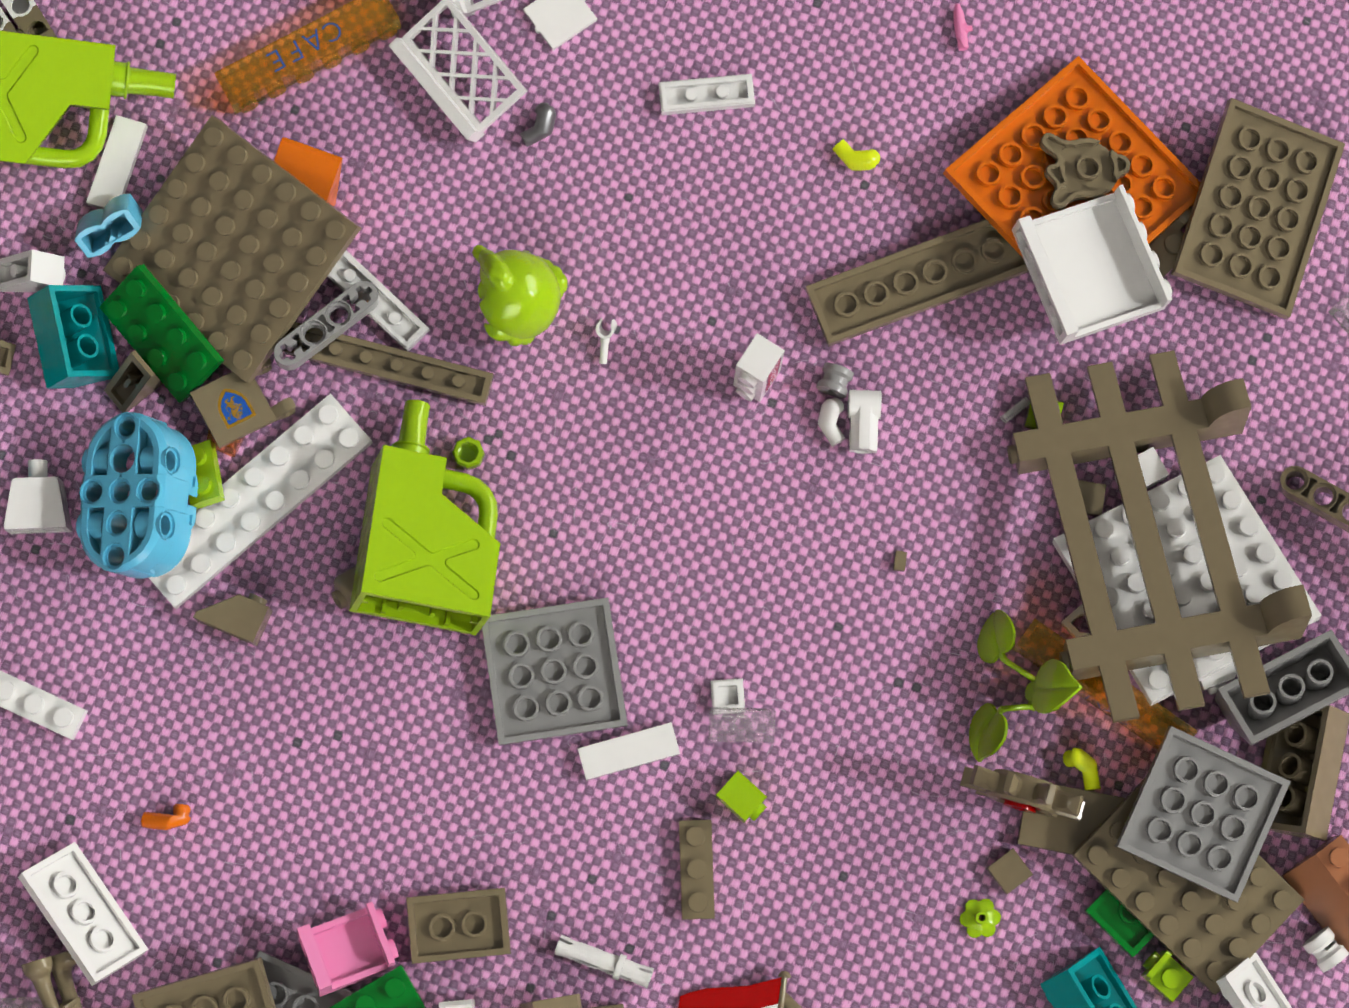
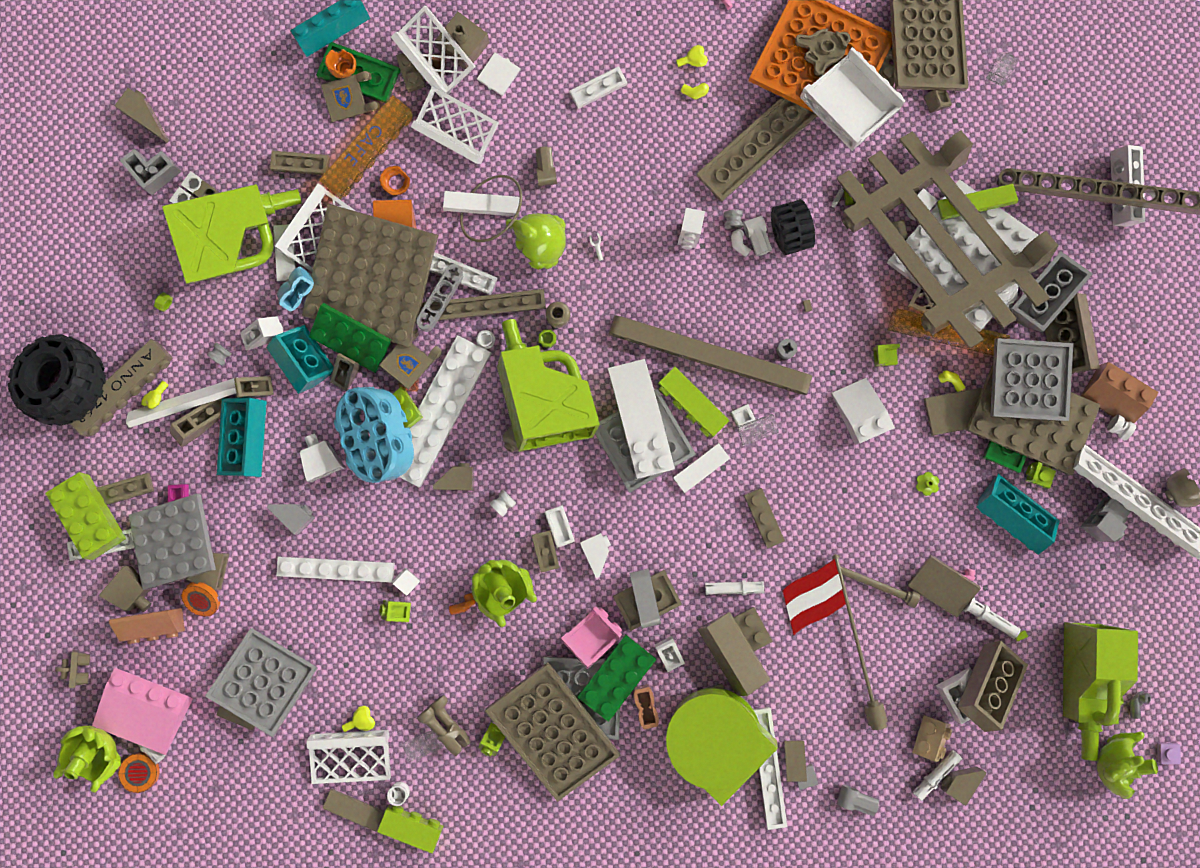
camera: 20 degrees left, 5 degrees up
(57, 786) = (395, 611): none -> lime bracket
(83, 913) = (438, 675): white plate -> none
(93, 746) = (406, 581): none -> white tile
(161, 121) = (299, 221): none -> white fence
(195, 34) = (299, 162): none -> dark tan plate
(235, 814) = (501, 588): none -> lime piece
(293, 683) = (502, 503): none -> white wheel
(321, 105) = (386, 176): none -> orange piece
(330, 785) = (545, 551): none -> dark tan plate
(368, 755) = (559, 526): none -> white tile
(371, 417) = (485, 339): none -> white plate
(409, 818) = (596, 552): none -> white slope
(451, 204) = (480, 203): none -> white tile
(454, 919) = (645, 598): none -> light grey beam
(482, 251) = (512, 221): none -> dark tan piece
(493, 413) = (555, 309): none -> dark tan head
(543, 125) = (515, 140): flat silver arm -> none
(561, 636) = (641, 419): none -> white slope
(572, 194) = (546, 171): none -> dark tan piece
(656, 642) = (693, 402): none -> lime brick
(714, 579) = (710, 355): none -> dark tan beam
(742, 797) = (774, 469): lime brick -> none
(835, 621) = (785, 353): none -> light grey wheel
(875, 104) = (694, 57): none -> neon yellow rock
(919, 761) = (862, 411): none -> white slope
(920, 428) = (793, 227): none -> black wheel
(993, 686) = (885, 355): none -> lime panel
(1009, 871) = (934, 452): dark tan tile -> none
(1023, 792) = (931, 406): dark tan gear -> none
(1046, 692) = (924, 345): lime plant -> none
(1236, 317) = (937, 100): none -> dark tan slope
(1238, 502) = (982, 200): none -> lime tile

